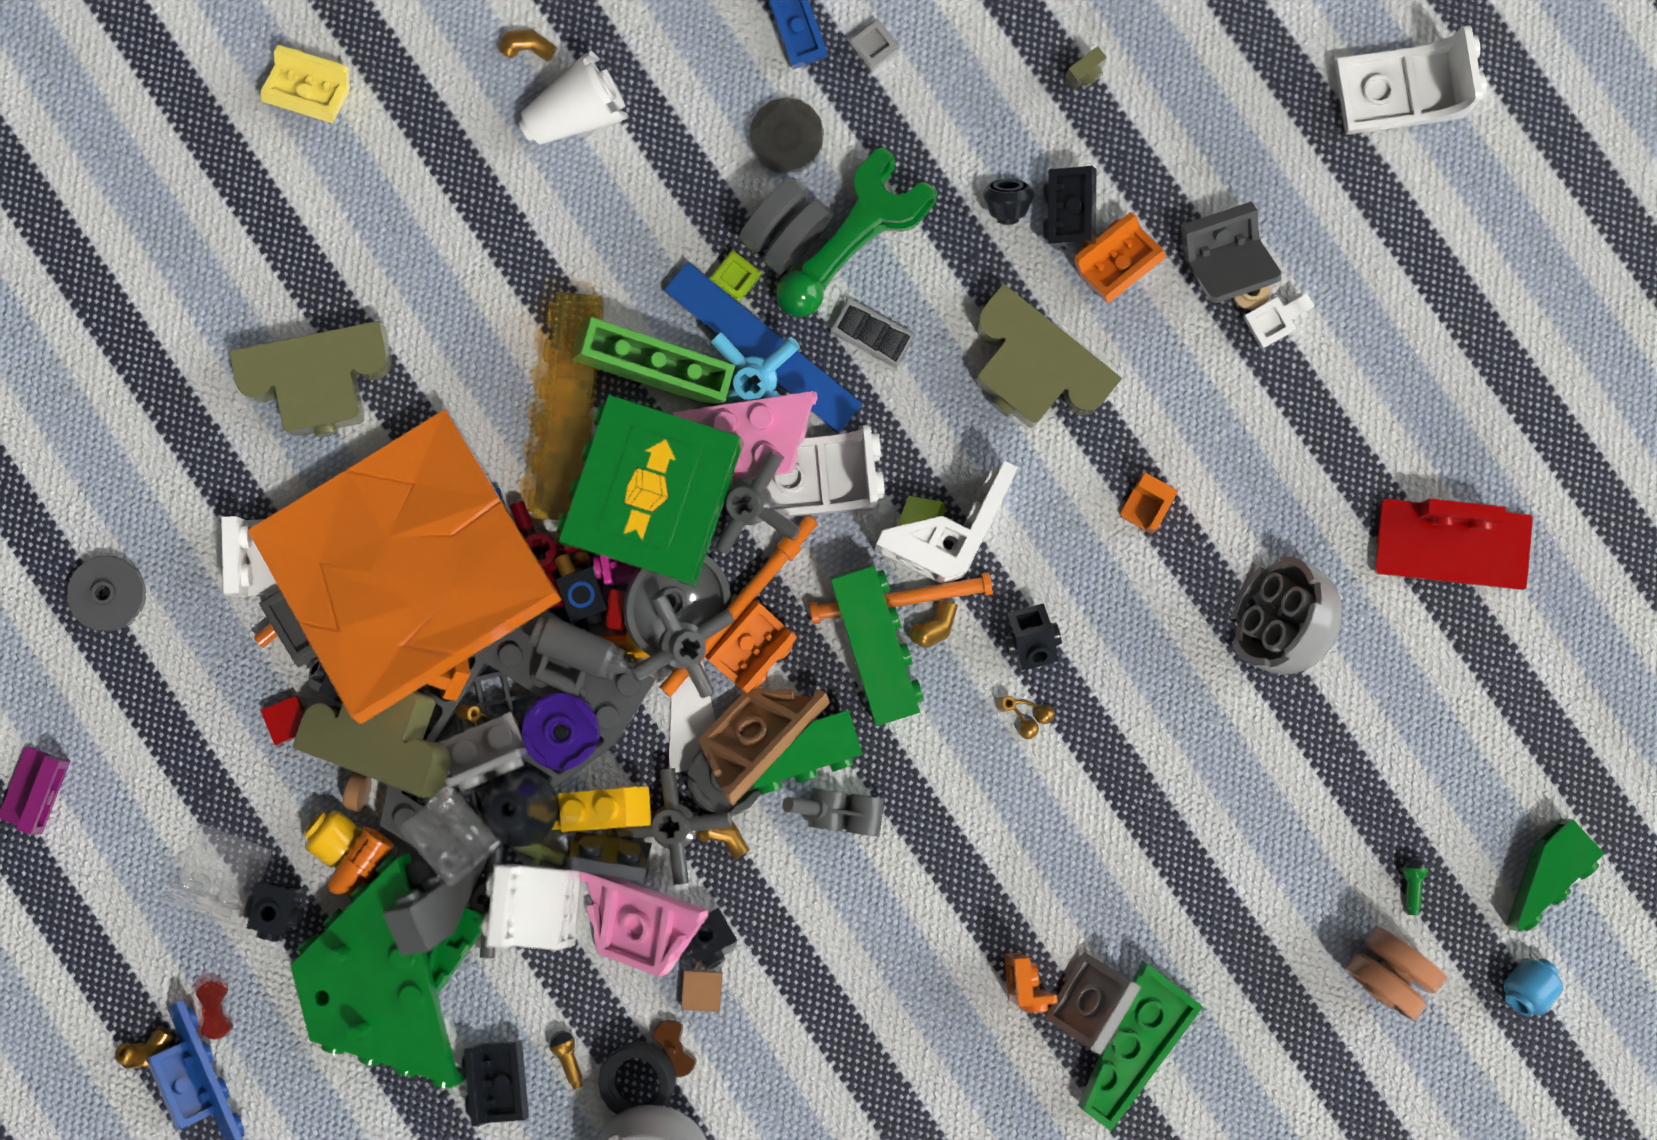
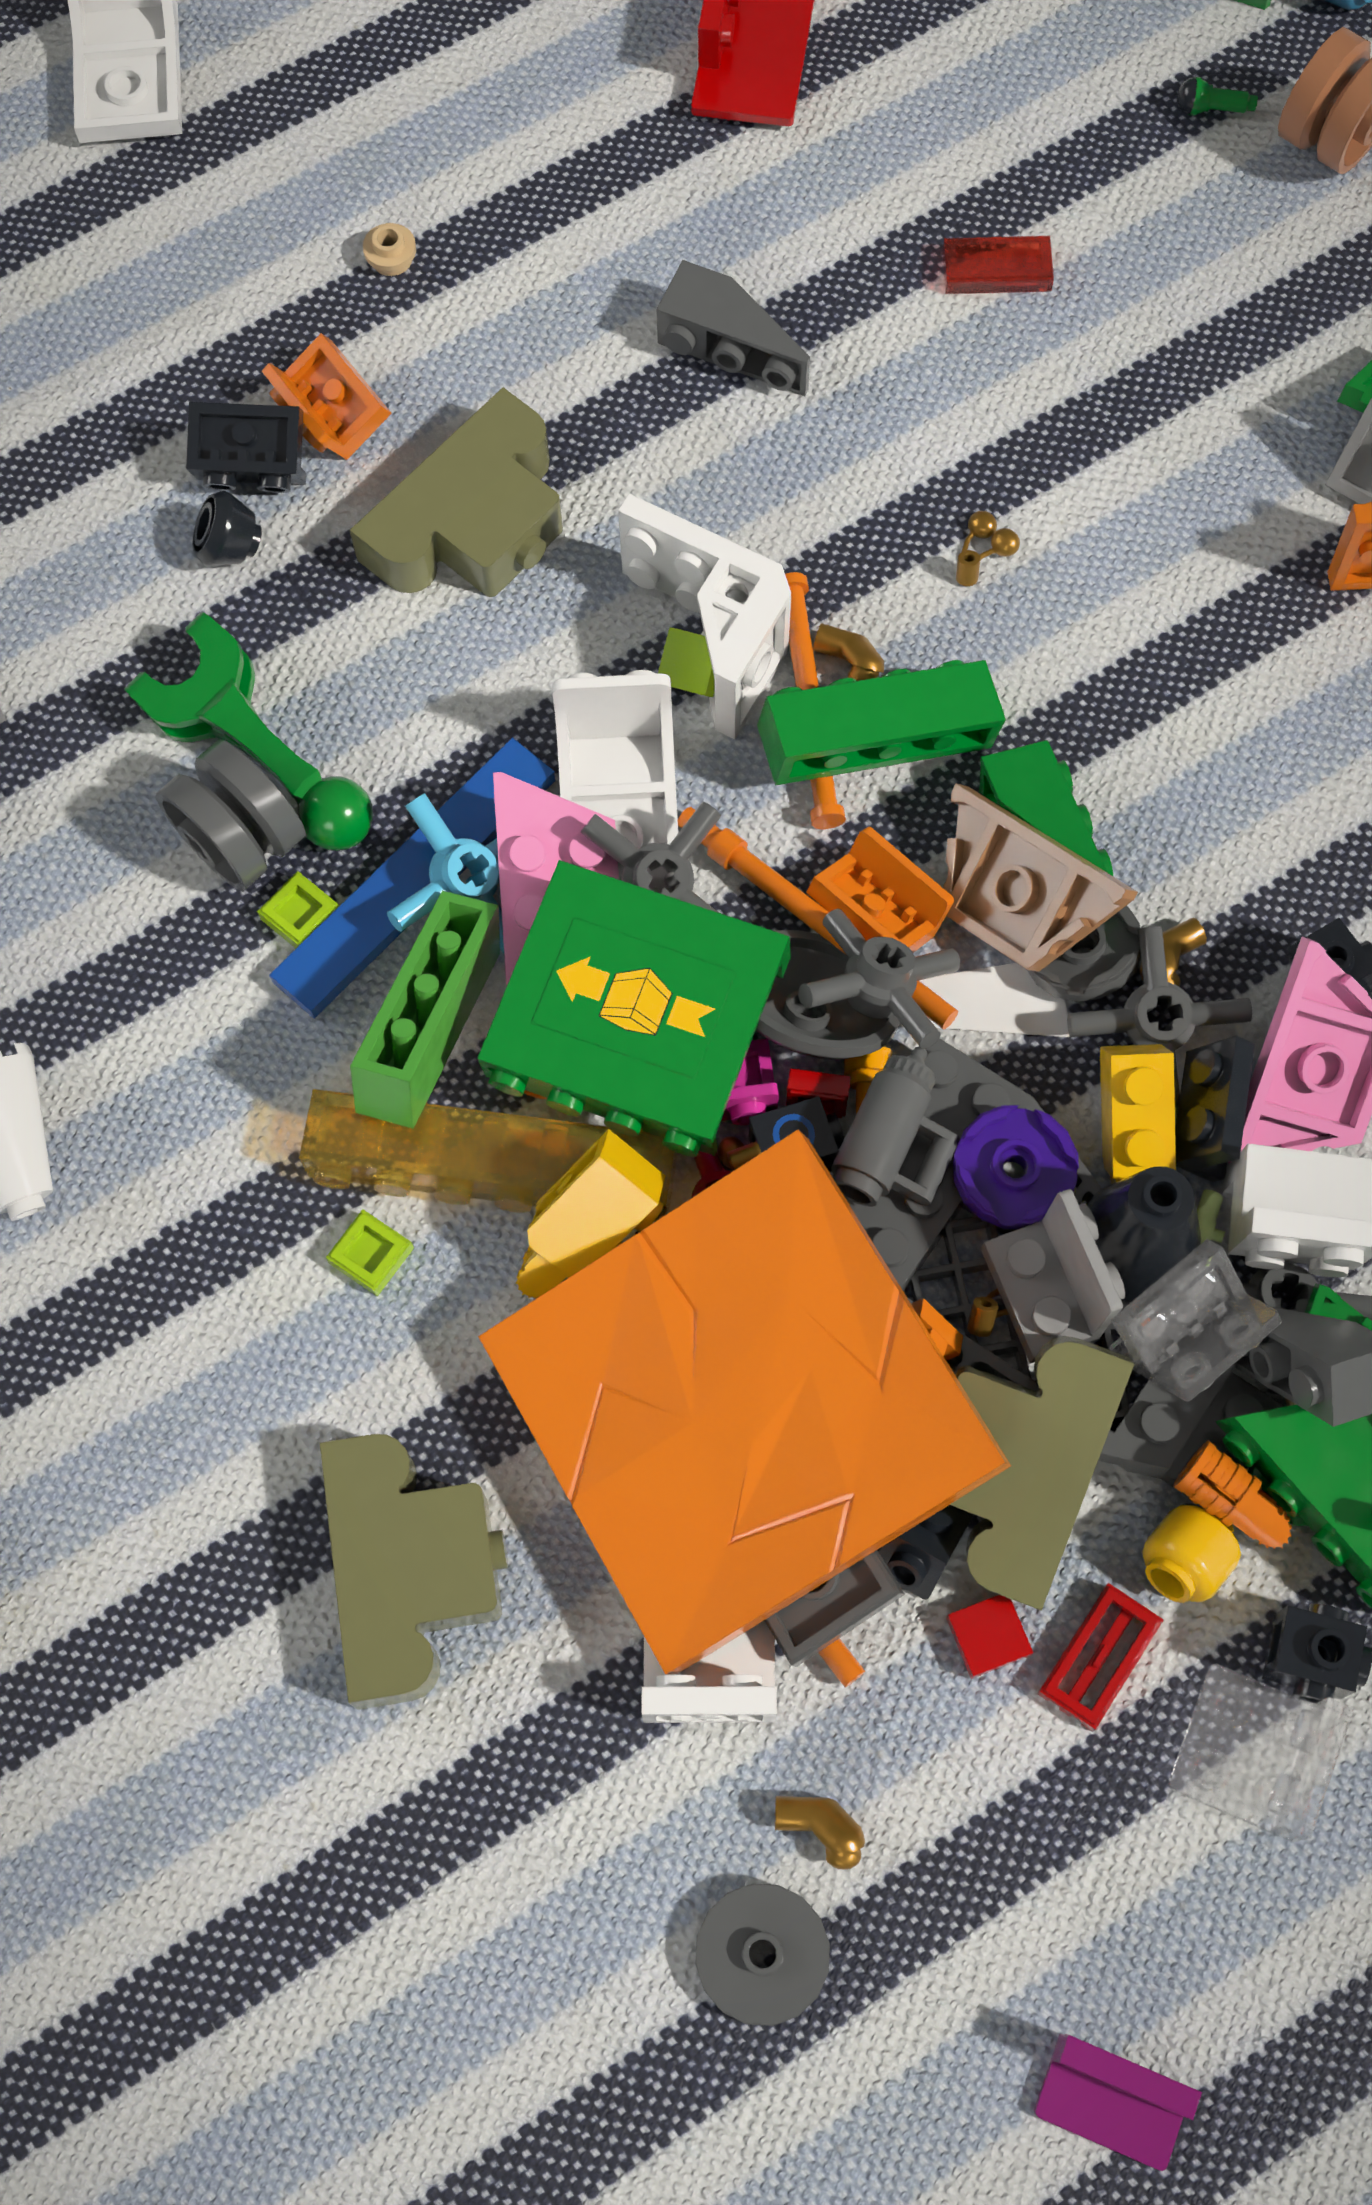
camera: 80 degrees left, 15 degrees down
(178, 627) = (829, 1824): none -> pearl gold arm
(303, 802) = (1070, 1702): none -> red tile
(357, 792) = (1111, 1513): medium nougat tile -> none
(509, 340) = (370, 1252): none -> lime tile
(520, 471) = (589, 1213): none -> yellow hinge
(786, 135) = (87, 831): clear smoke tile -> none
(839, 811) = (1132, 781): dark grey beam -> none
(872, 333) = (406, 724): tile -> none
(1035, 644) = (874, 517): black brick -> none
(1087, 69) = (45, 427): olive plate -> none
(1148, 503) = (683, 375): orange panel -> none
(1195, 524) = (722, 324): none -> dark grey slope
(1228, 254) = (341, 265): dark grey bracket -> none
(1259, 724) = (997, 264): none -> clear red tile
(1274, 320) = (433, 217): white plate -> none
(1303, 626) = (826, 183): light grey cylinder -> none

